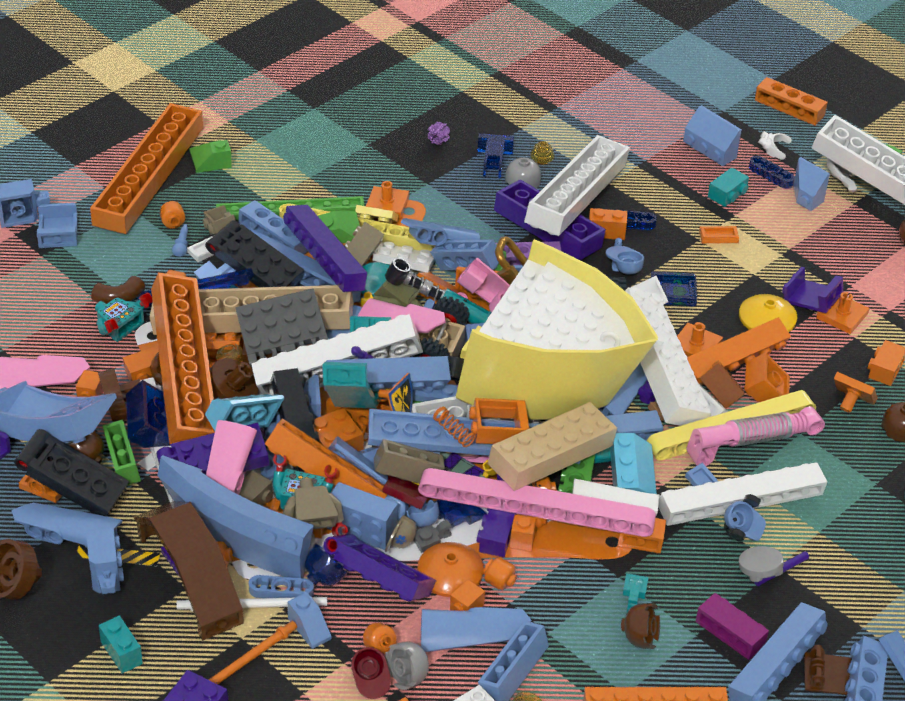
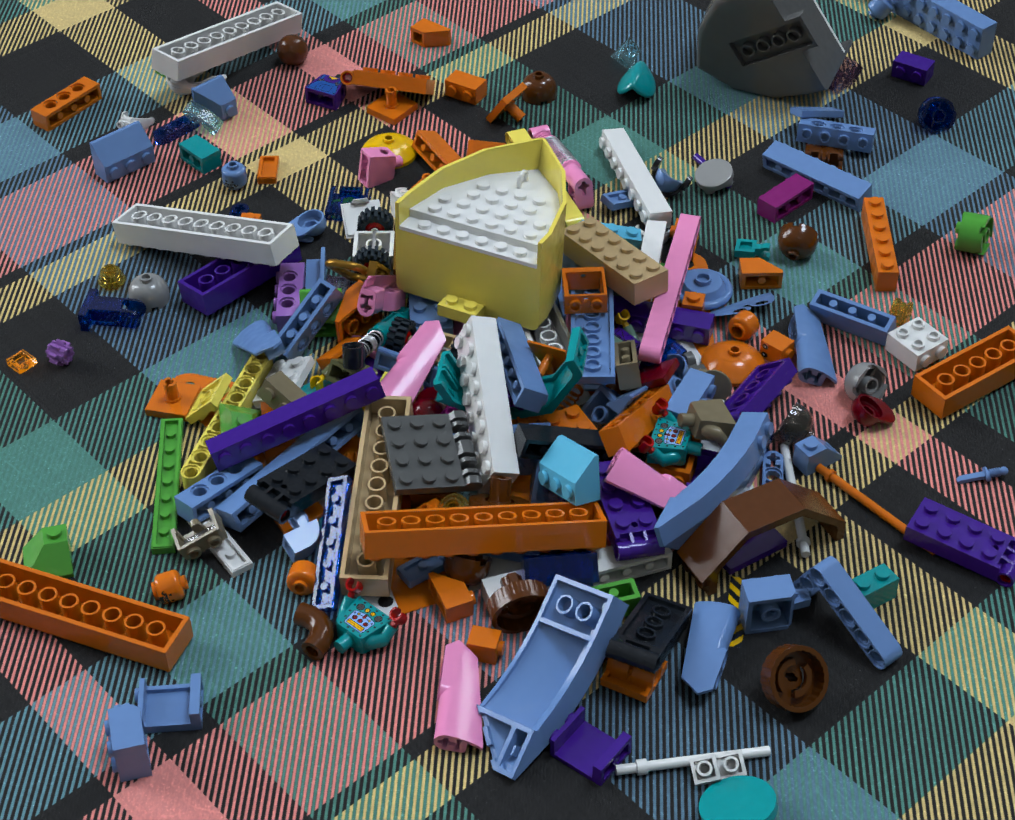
camera: 85 degrees left, 0 degrees up
(83, 612) = (852, 609): none -> medium blue beam
(179, 248) = (228, 582): medium blue bar -> none
(341, 601) = (795, 426): none -> clear smoke cylinder
(361, 354) = (510, 366): dark purple piece -> none
(379, 637) = (835, 402): orange head -> none
(433, 117) = (21, 361): none -> clear orange tile
(443, 416) = (574, 322): orange piece -> none
(547, 587) = (728, 310): none -> medium blue piece
(565, 548) = (710, 282): none -> medium blue piece
(590, 590) = (759, 274): none -> orange slope
(695, 208) = (234, 175): none -> medium blue head
(725, 298) = (377, 165): none -> bright pink torso
(783, 181) = (198, 113): none -> clear light blue slope
(812, 294) = (371, 116): dark purple panel -> none
(855, 263) = (326, 92): none -> dark purple torso
(872, 301) = (386, 78): none -> orange hinge

